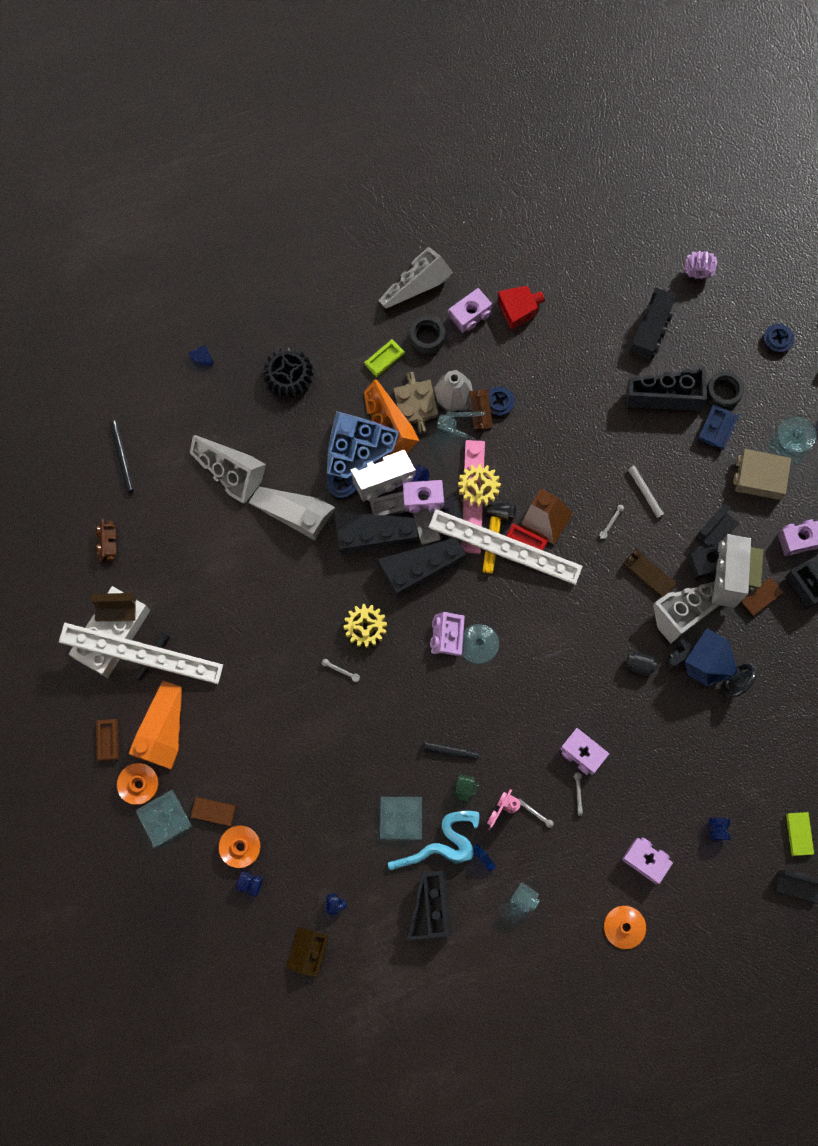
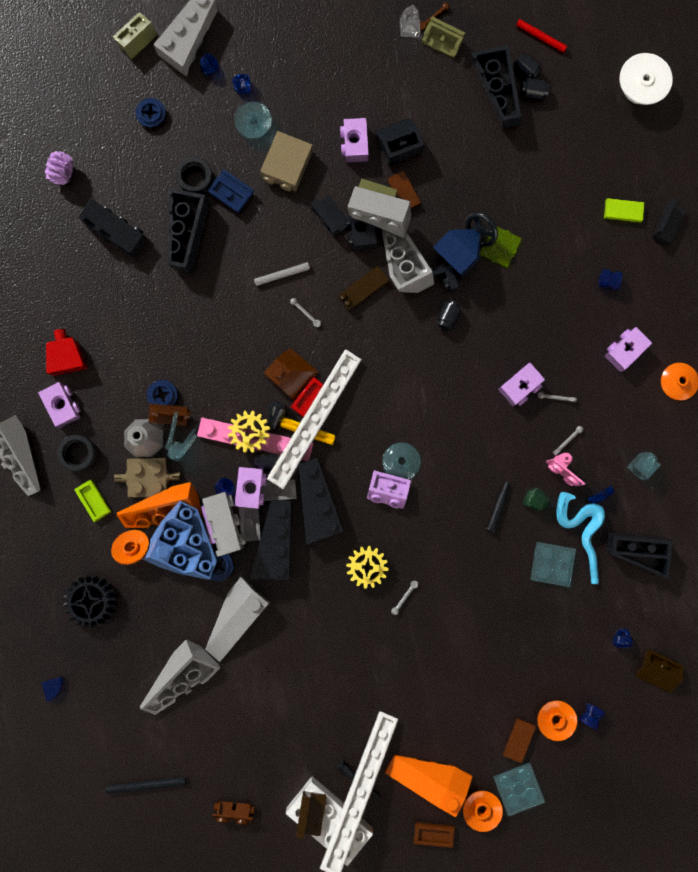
camera: 85 degrees left, 10 degrees up
(345, 398) = (127, 541): none -> orange dish
(727, 709) = (502, 249): none -> clear neon green piece

